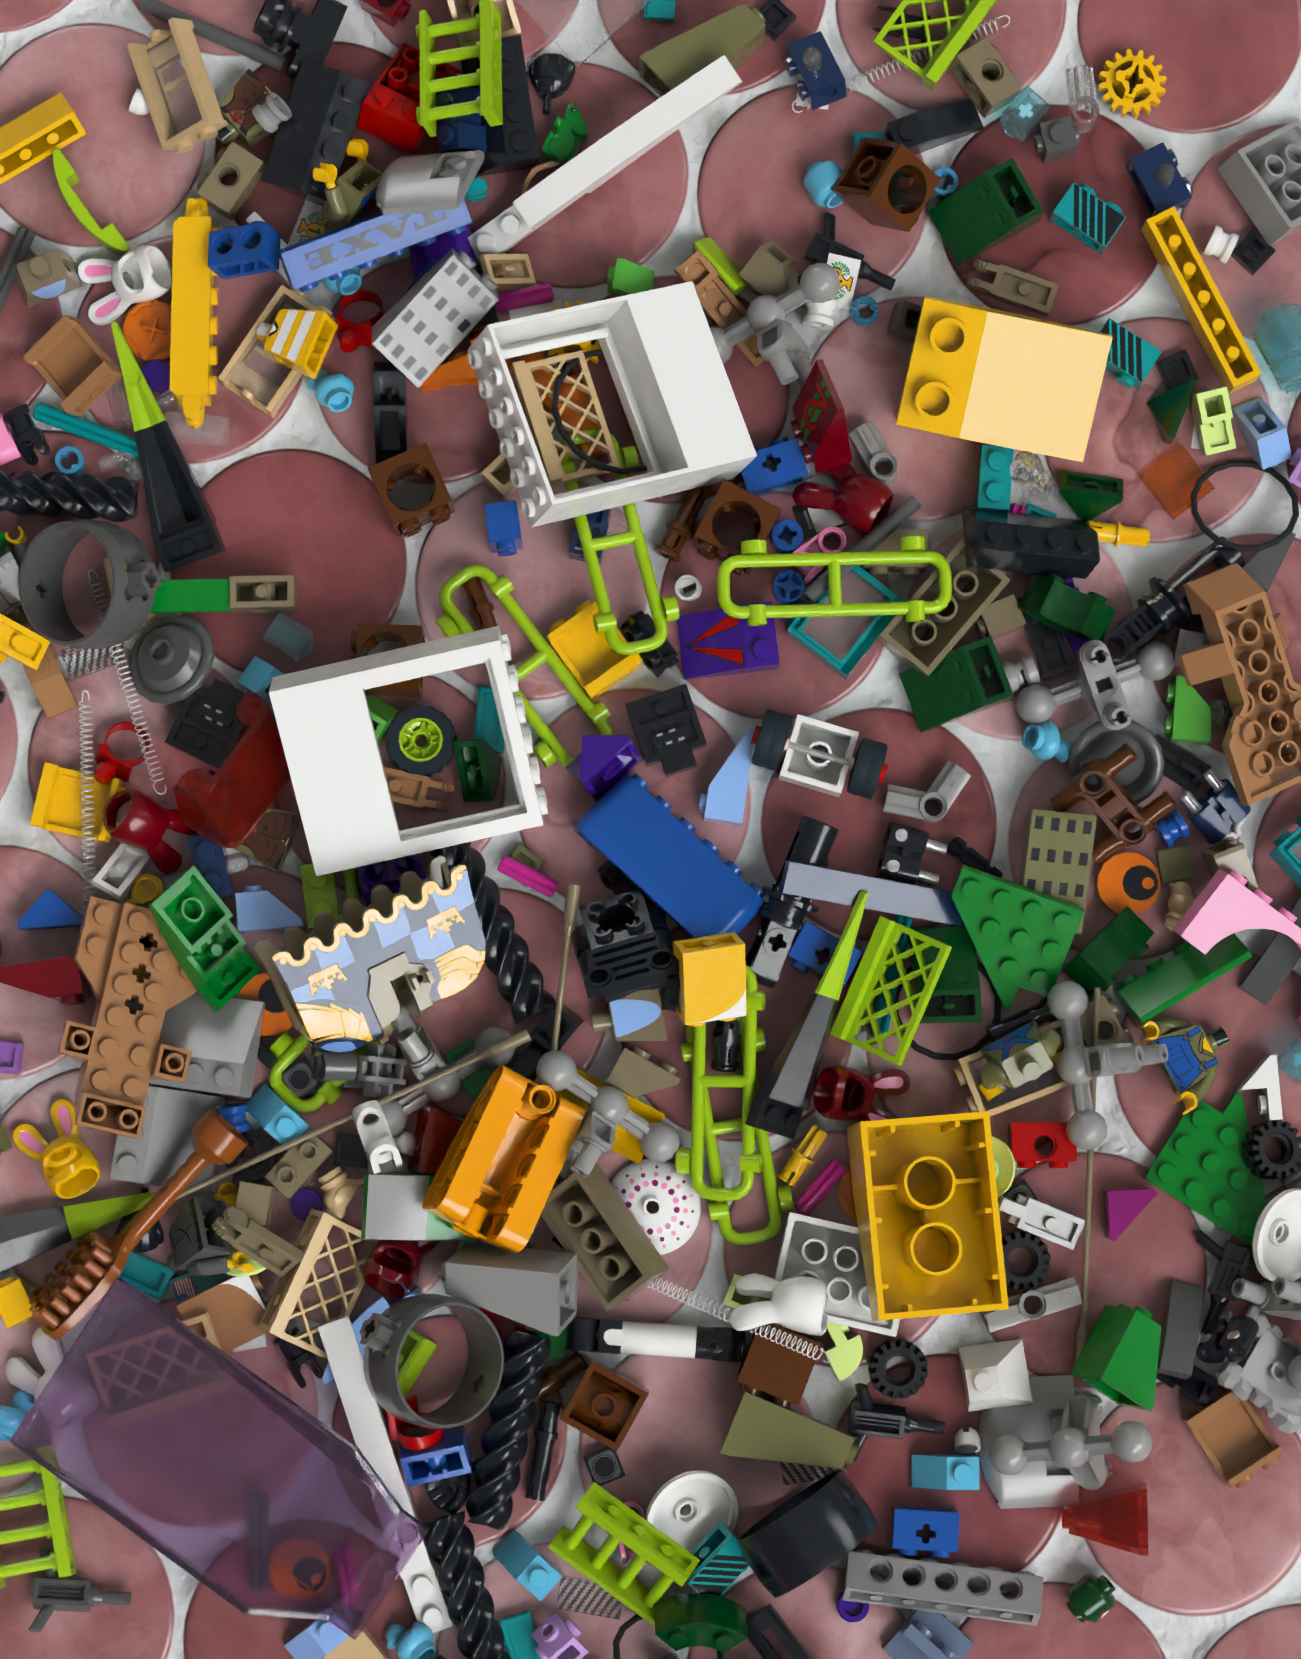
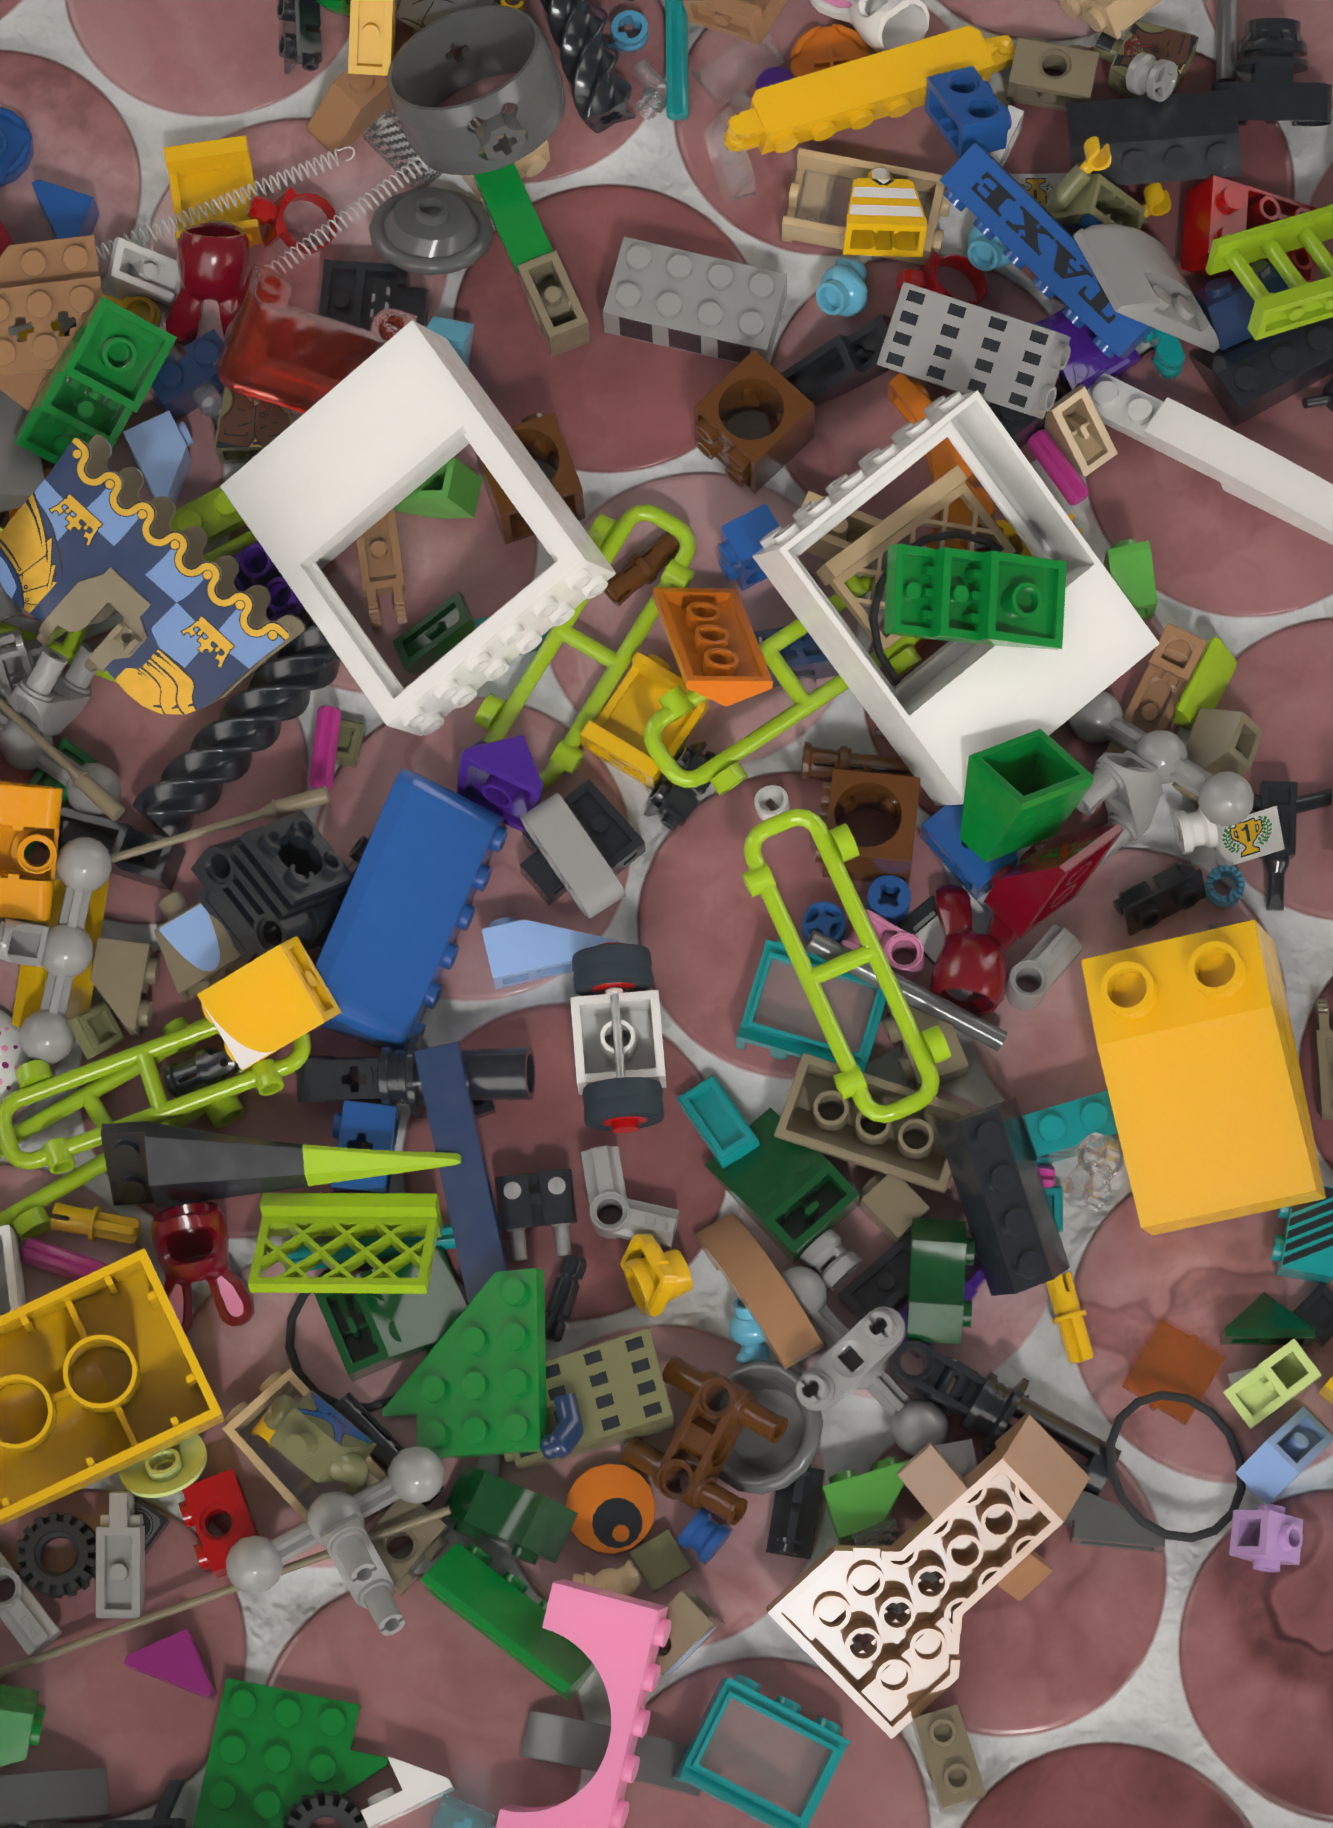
camera: 75 degrees right, 10 degrees down
(177, 508) = (623, 165): black plate -> none
(289, 637) = (514, 356): clear light blue brick -> none
(301, 496) = (694, 302): none -> light grey brick
(408, 728) = (458, 539): black wheel -> none
(562, 143) = (1284, 436): green animal -> none
(570, 579) = (713, 642): none -> orange slope
(626, 388) = (975, 597): none -> green slope
(668, 1106) = (96, 1030): none -> olive tile
(681, 735) = (573, 856): none -> light grey beam
(725, 645) = (707, 872): dark purple slope -> none
(766, 416) = (1019, 794): none -> green slope
(856, 344) = (1178, 890): none -> black hinge
(896, 711) = (718, 1121): none -> teal tile
(988, 794) = (656, 1277): none -> yellow piece
(1023, 727) = (760, 1289): none -> medium nougat slope
(1080, 890) = (567, 1431): none -> dark blue arm
(1089, 493) = (1109, 1261): dark green slope -> none
(1190, 1056) = (407, 1668): torso -> none
(1217, 810) = (748, 1585): dark blue piece -> none

